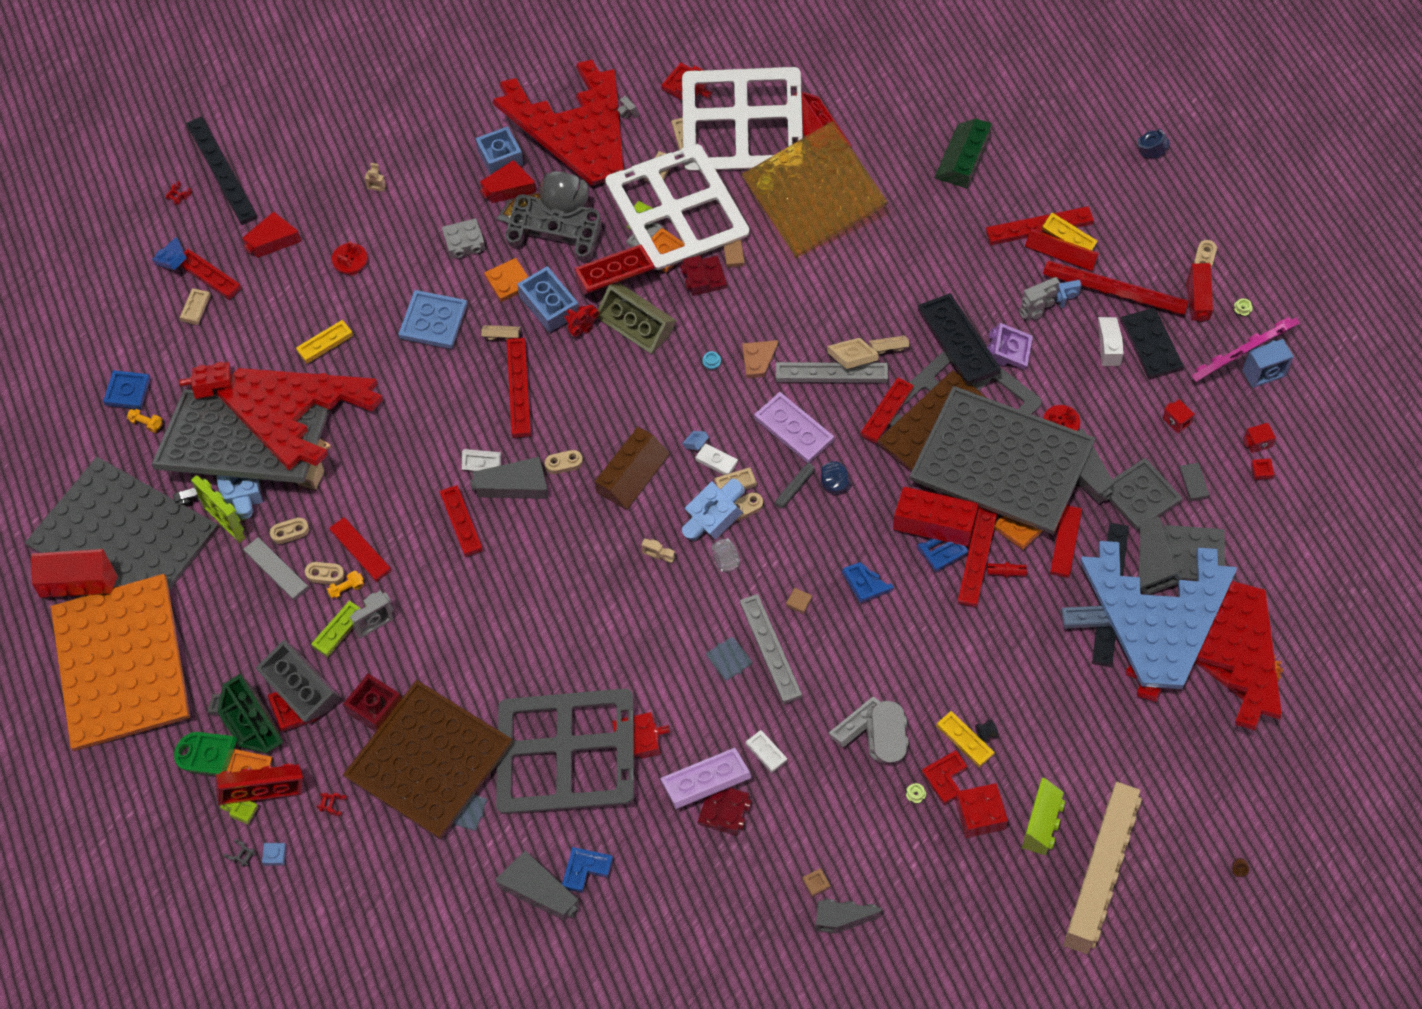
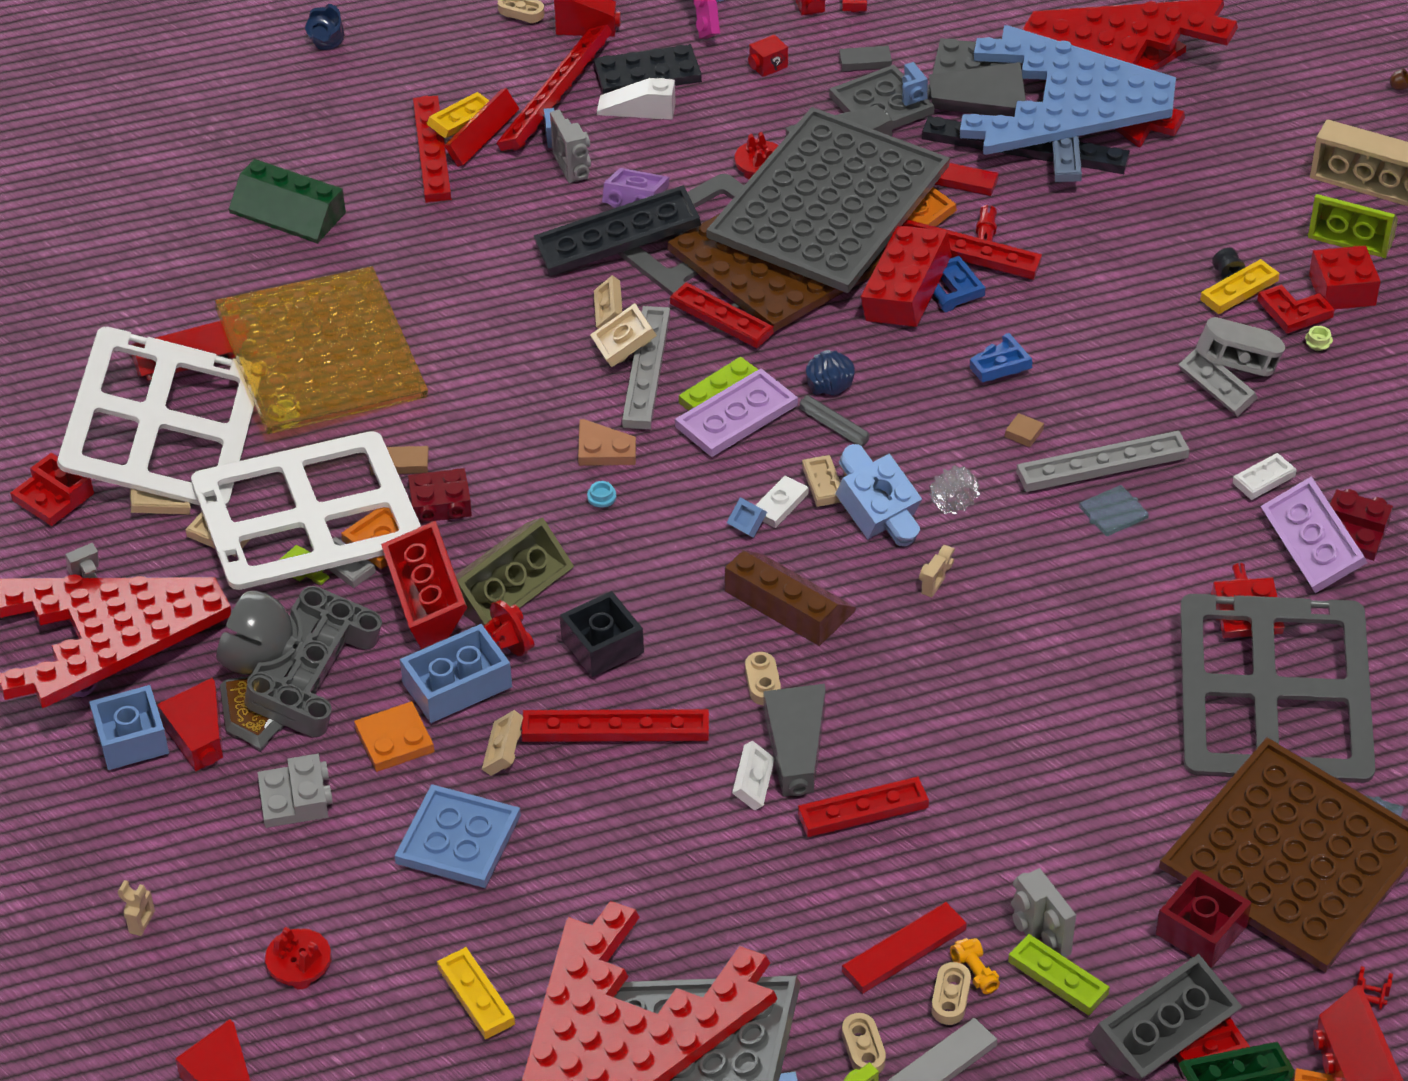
camera: 85 degrees left, 15 degrees down
(584, 369) = (601, 633): none -> black brick
(823, 416) = (716, 383): none -> lime plate
(1151, 509) = (914, 84): none -> medium blue bracket

